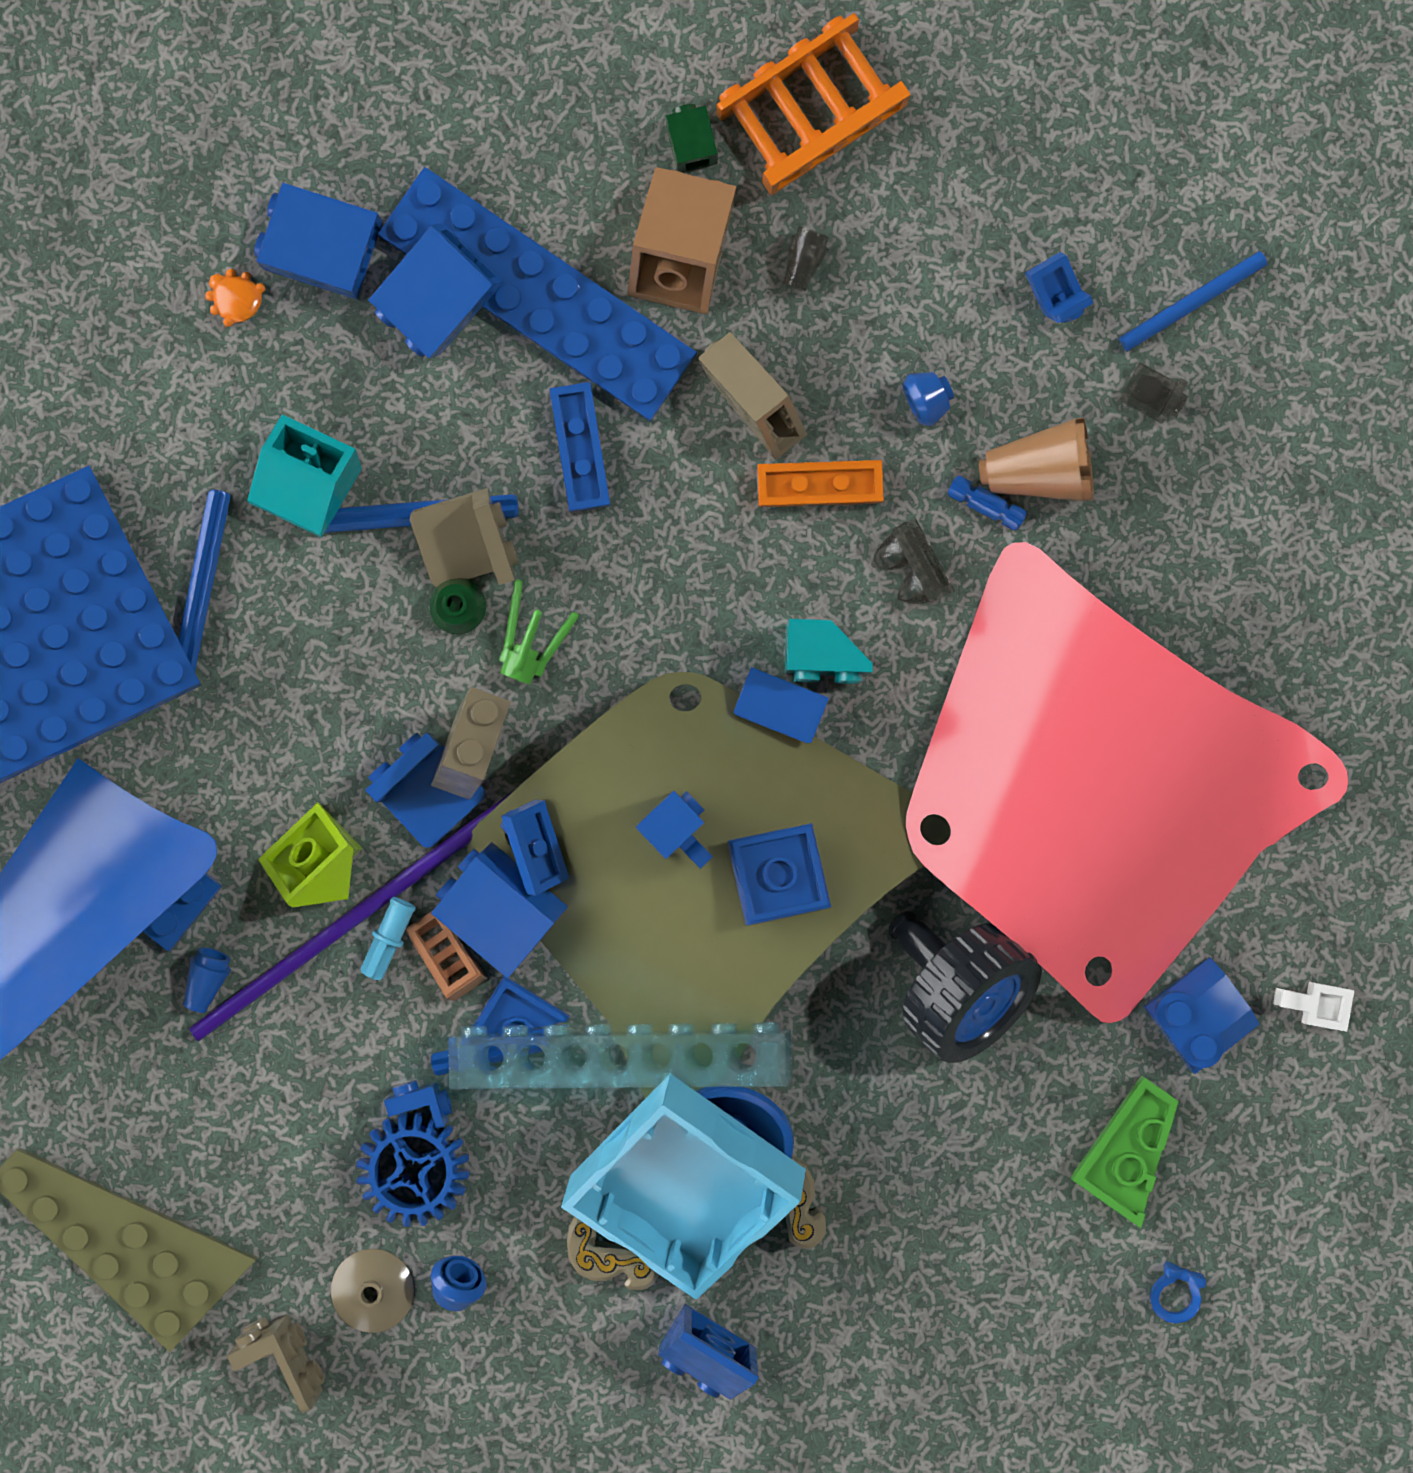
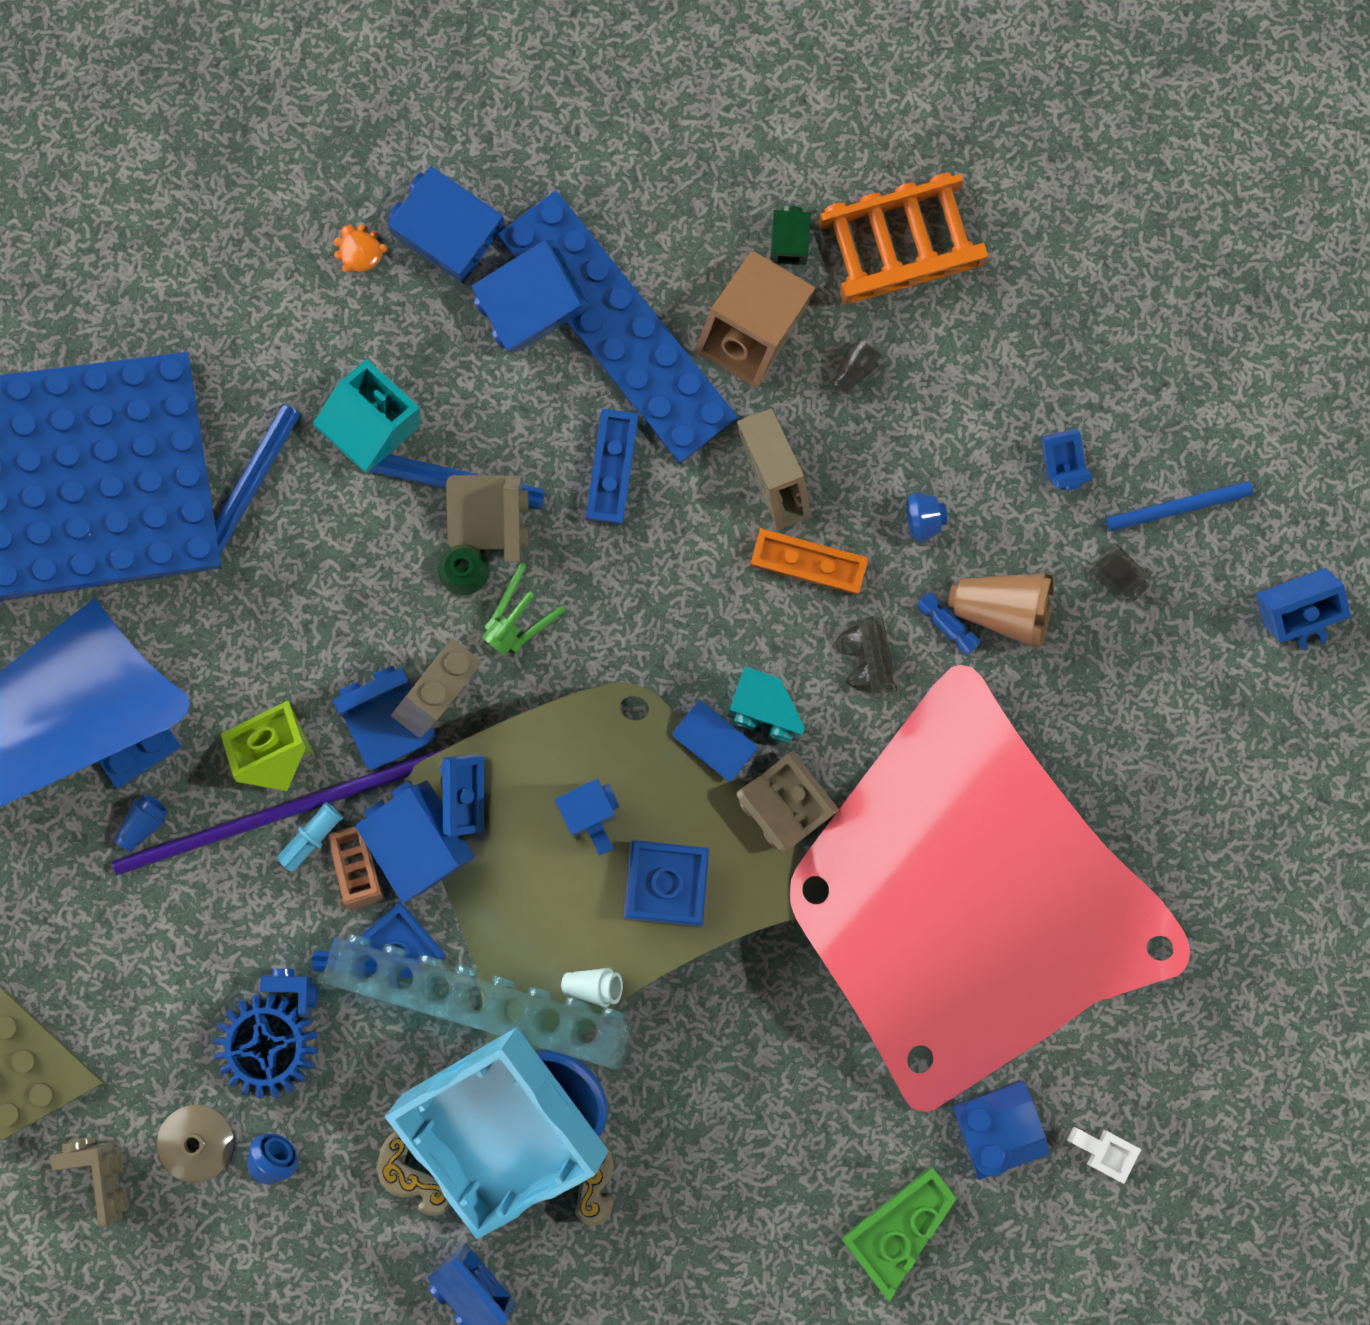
camera: 15 degrees right, 5 degrees down
(737, 1005) = (594, 986): none -> light aqua cone
(876, 747) = (786, 802): none -> dark tan bracket
(966, 988) = (799, 1036): black wheel -> none
(1358, 368) = (1304, 607): none -> blue brick

